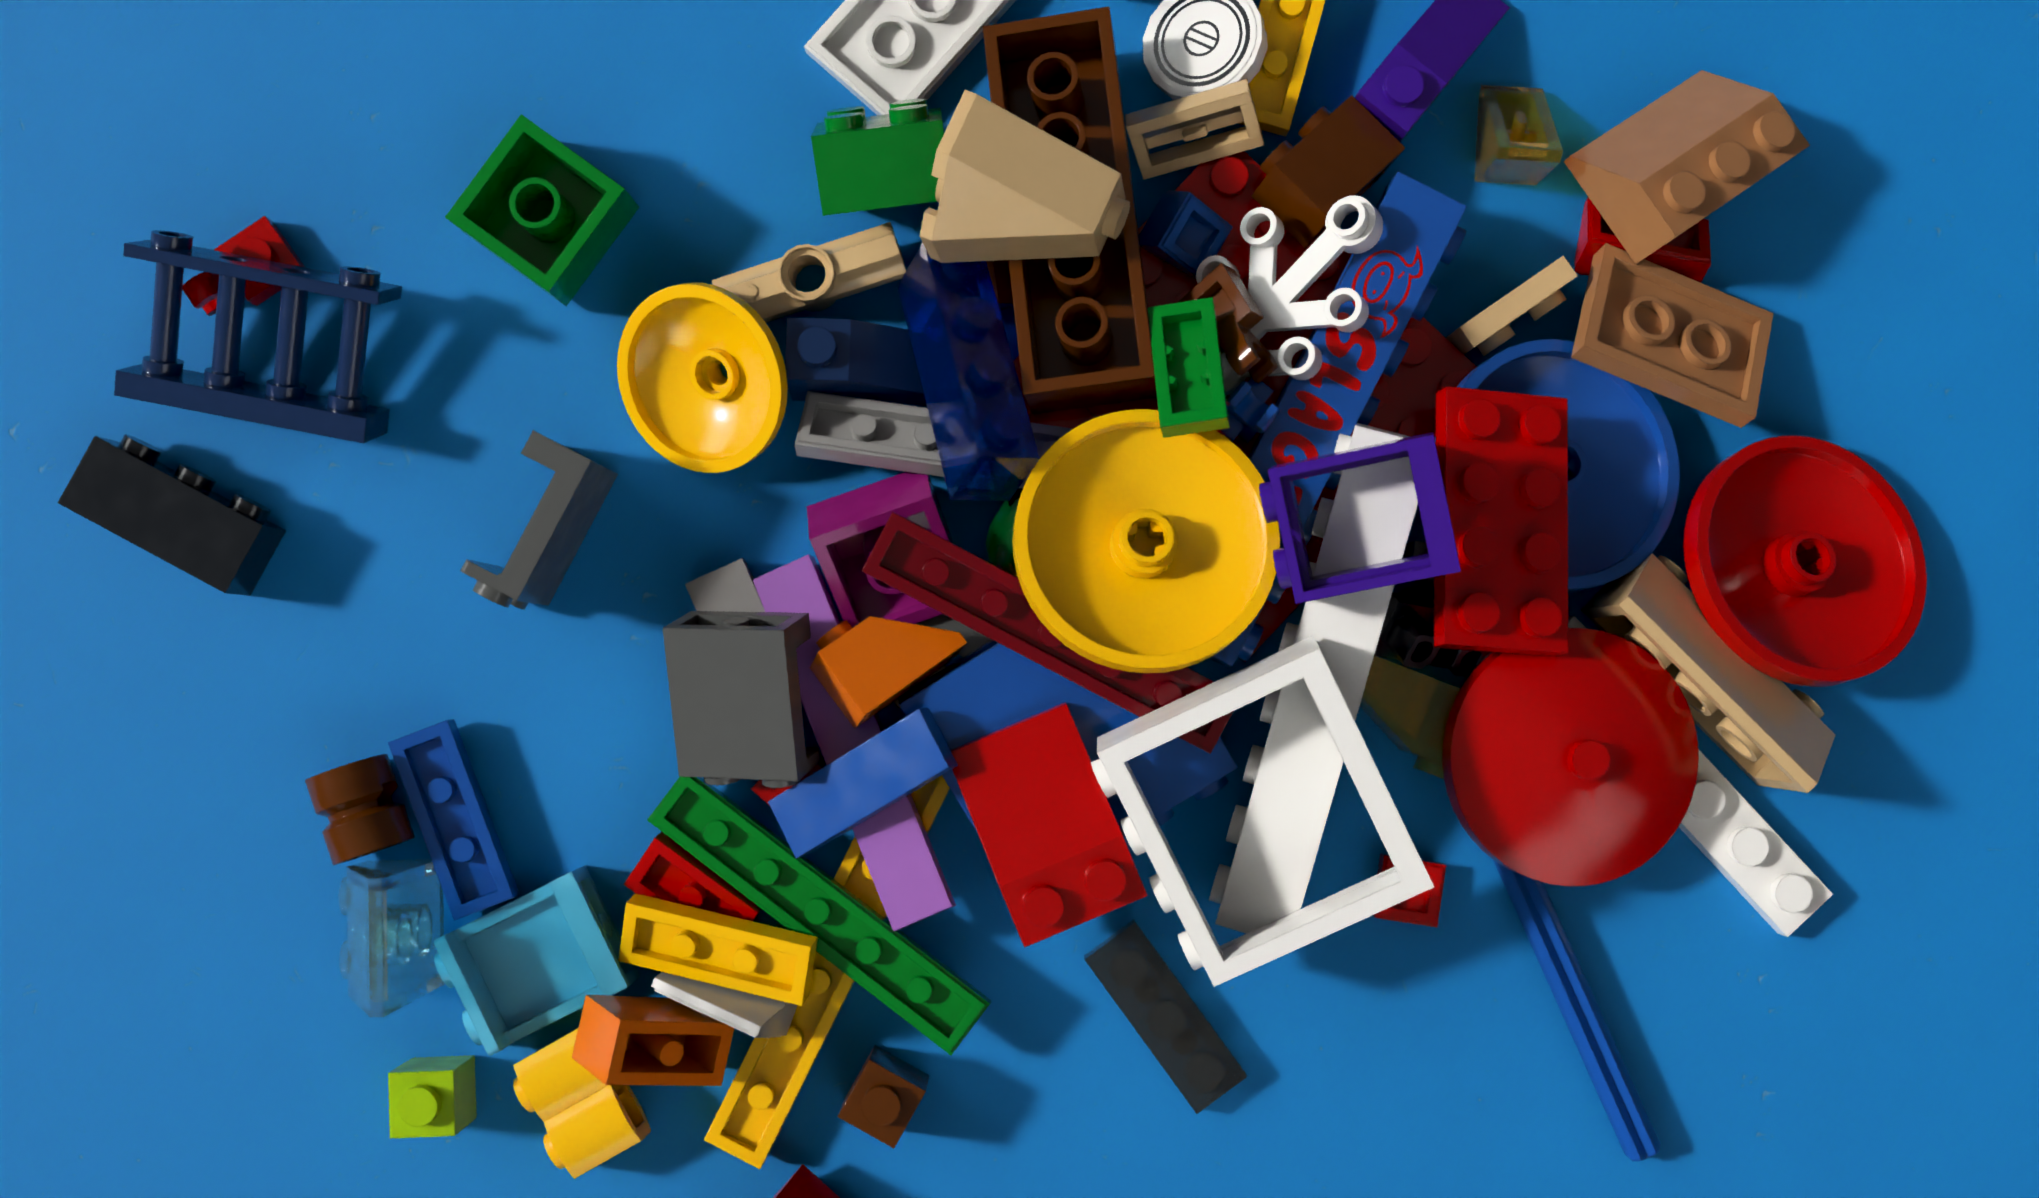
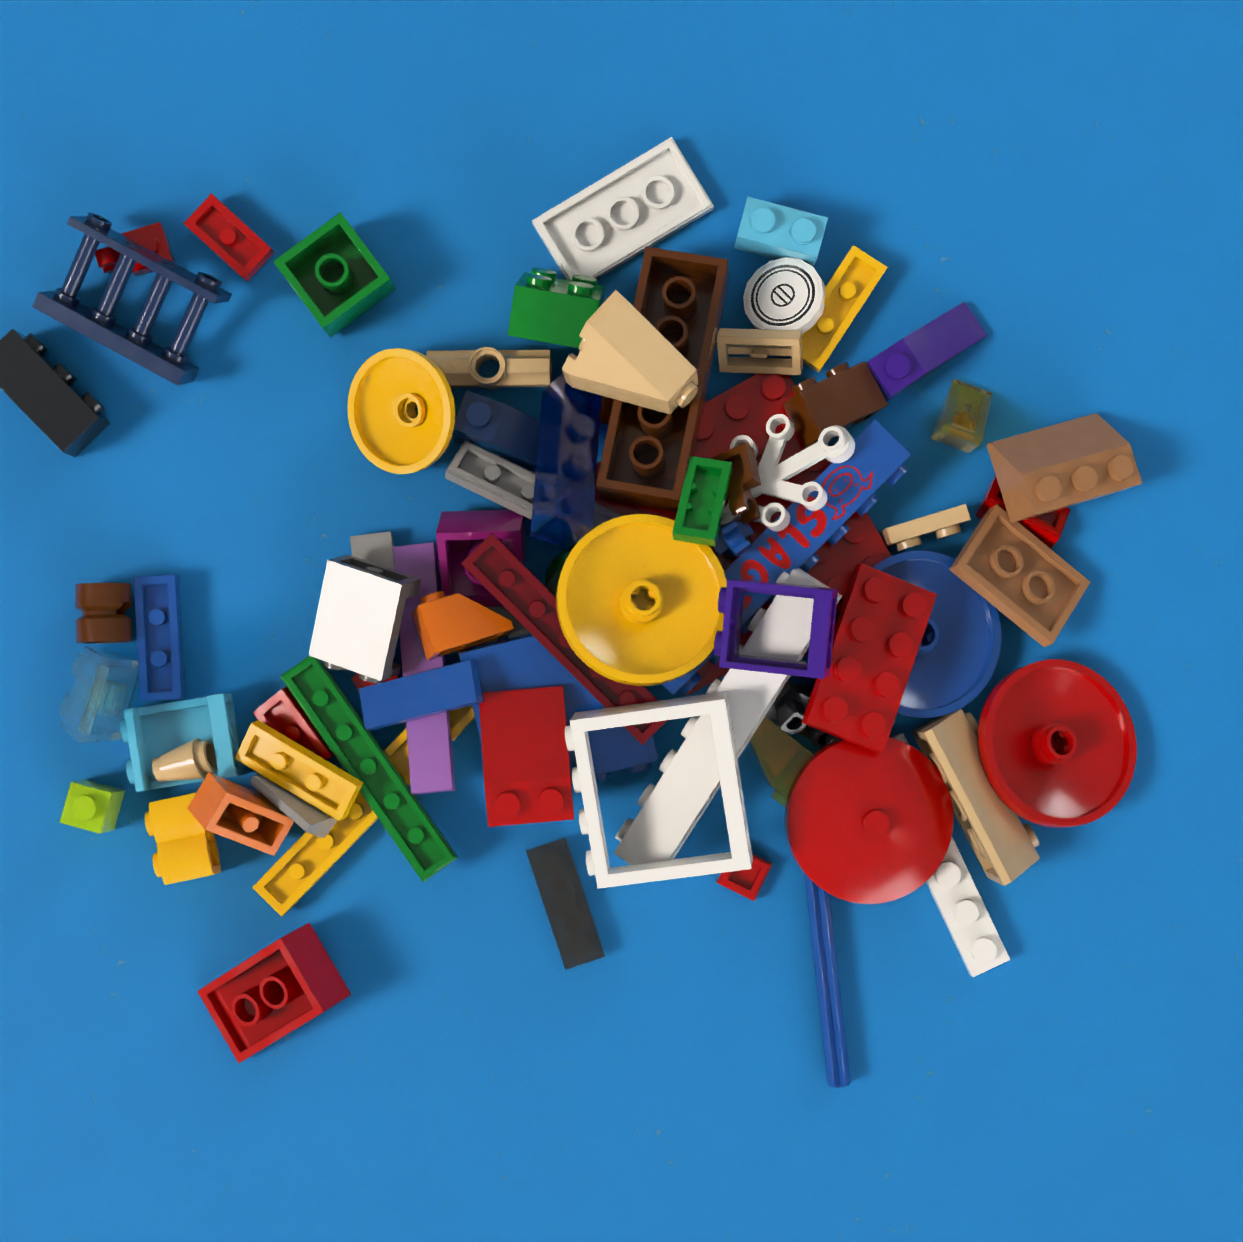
camera: 20 degrees right, 0 degrees up
(372, 207) = (229, 237): none -> red plate
(549, 988) = (186, 762): none -> tan cone
(552, 532) = (279, 477): dark grey panel -> none
(884, 1096) = (373, 895): reddish brown brick -> none
(1183, 231) = (732, 413): blue slope -> none

